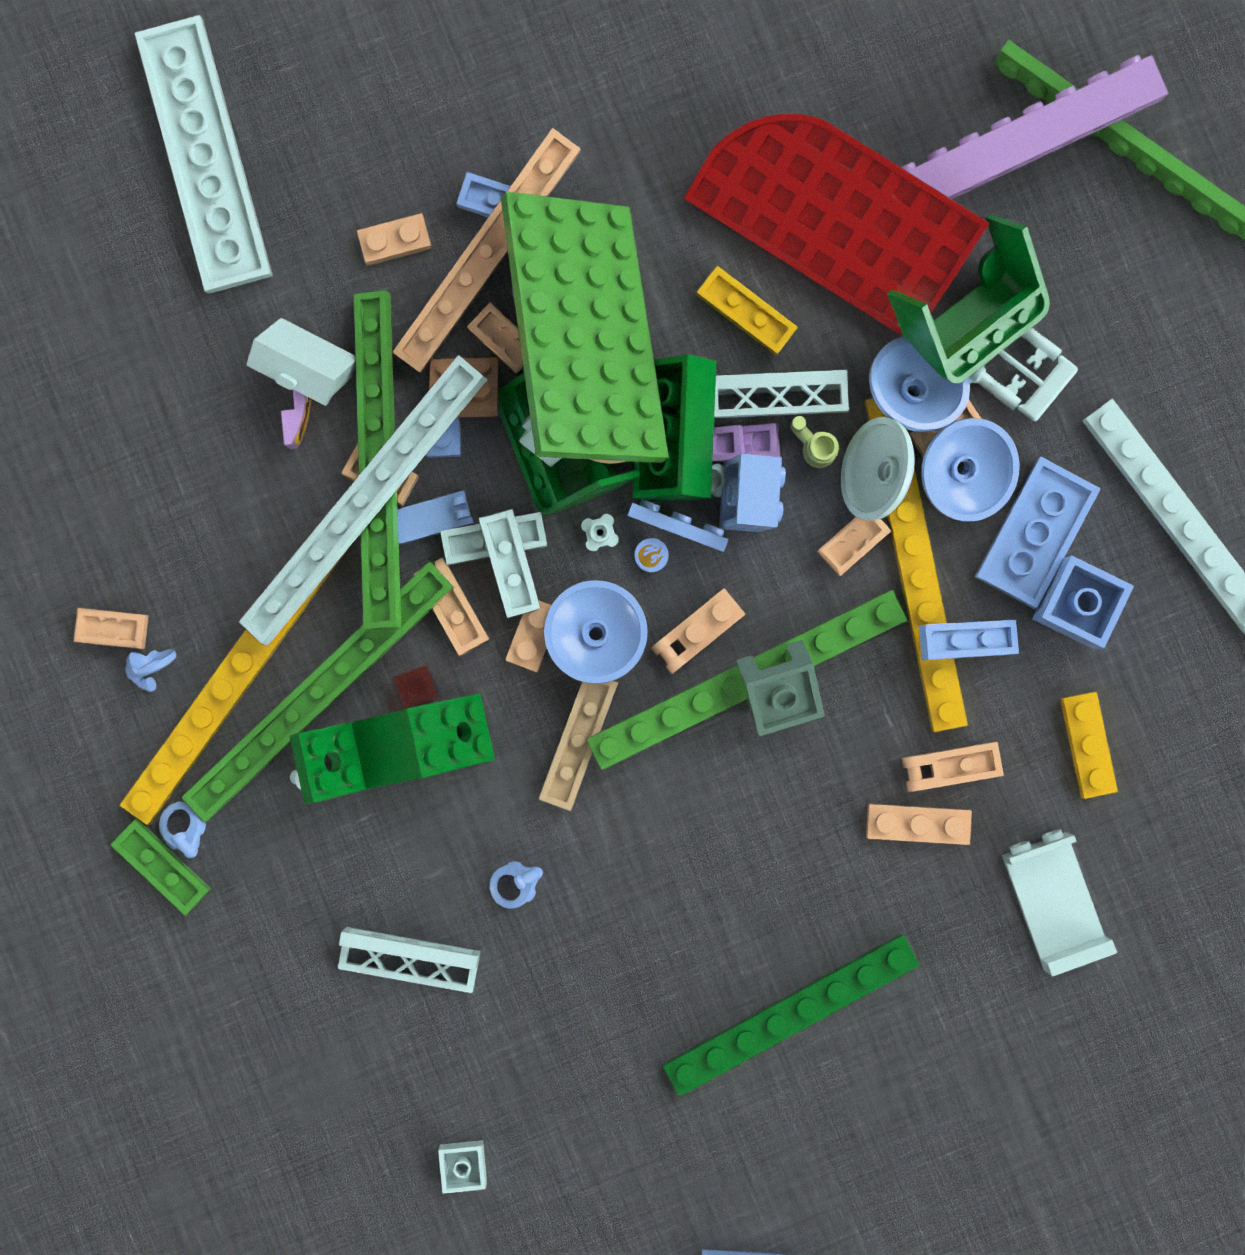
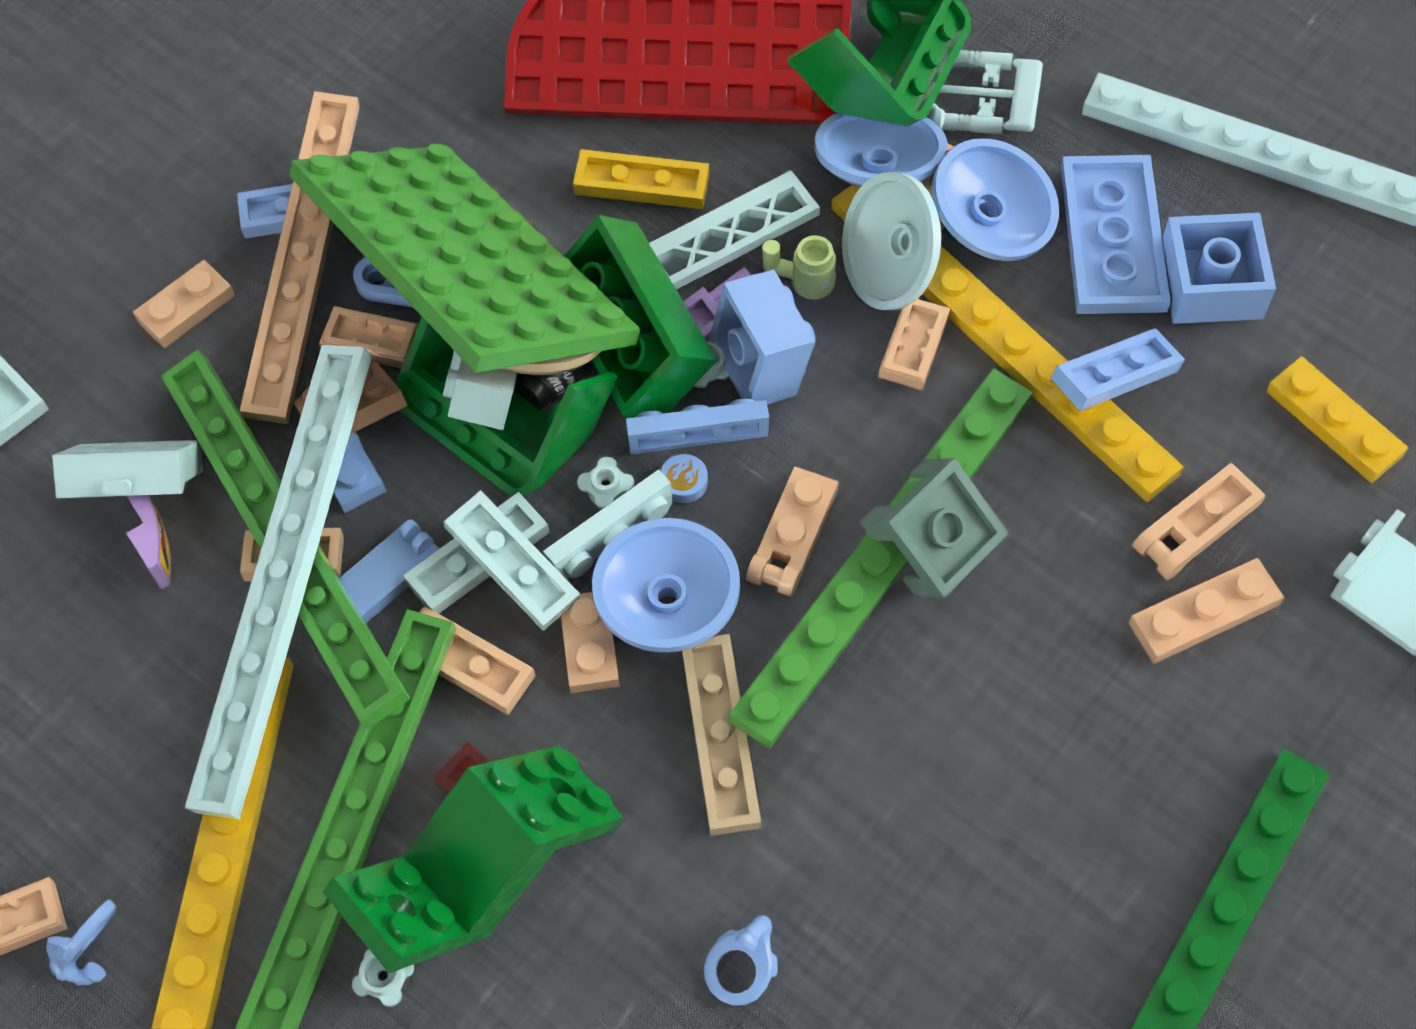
camera: 25 degrees left, 25 degrees down
(584, 569) = (580, 547): none -> light aqua plate

